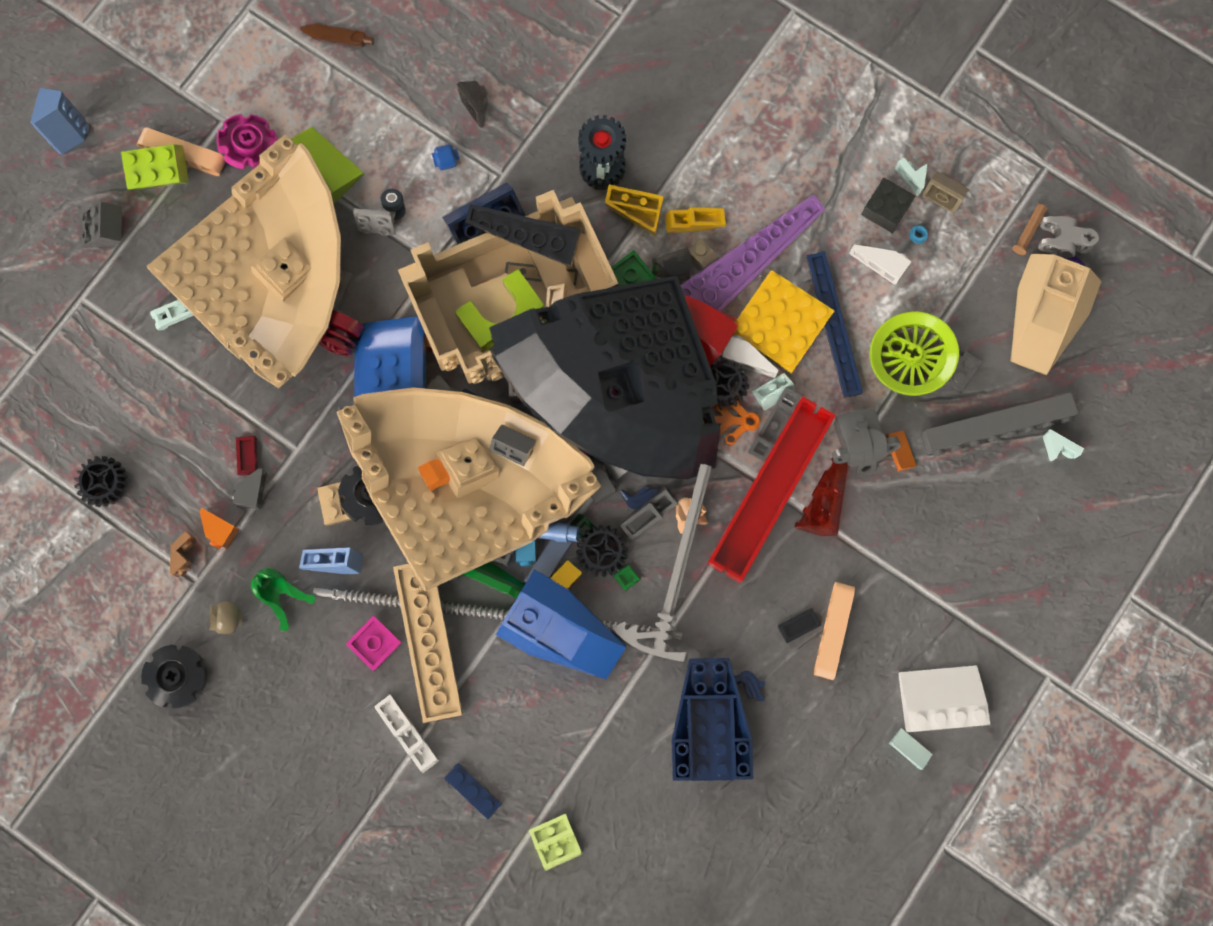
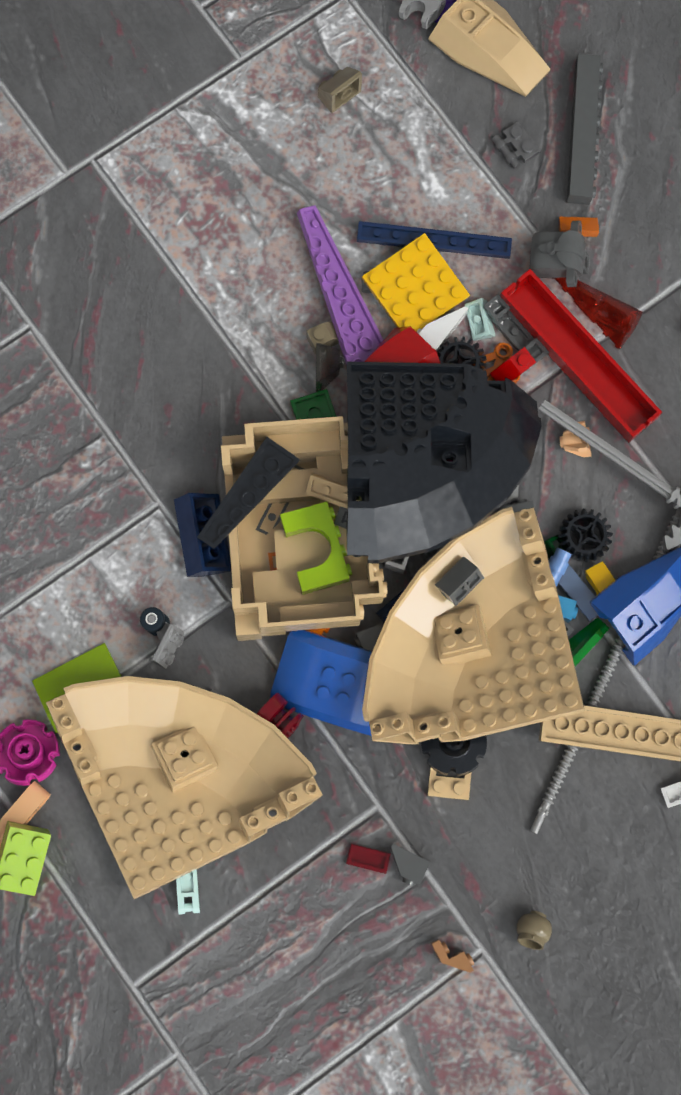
camera: 75 degrees left, 0 degrees up
(88, 491) = (354, 1035): black gear -> none
(102, 225) = (61, 938): dark grey slope -> none
(188, 681) = (589, 1011): black piece -> none
(217, 530) = (438, 911): orange slope -> none
(268, 585) = (516, 878): green hair -> none
(332, 560) = (508, 804): medium blue slope -> none
(373, 643) = (605, 788): dark pink plate -> none
(434, 474) = (461, 668): orange piece -> none
(445, 157) = (121, 552): blue head -> none
(474, 99) = (73, 502): clear smoke slope -> none
(602, 152) = (186, 390): black plate -> none
(626, 577) = (618, 521): green tile -> none
(635, 502) = (544, 481): dark blue piece -> none
(636, 206) = (248, 381): yellow wedge -> none
(649, 513) = (563, 477): dark grey slope -> none
(694, 219) = (280, 331): yellow slope -> none
(736, 432) = (513, 366): none -> red slope
(884, 262) = (392, 168): white slope -> none
(888, 205) = (334, 145): pearl dark grey piece -> none
(913, 178) = (316, 112): light aqua slope -> none
(921, 230) = (371, 125): dark azure plate -> none
(942, 370) = (518, 158): lime piece -> none
(1030, 229) = (404, 29): medium nougat axle -> none
(1055, 443) = (621, 86): light aqua slope -> none

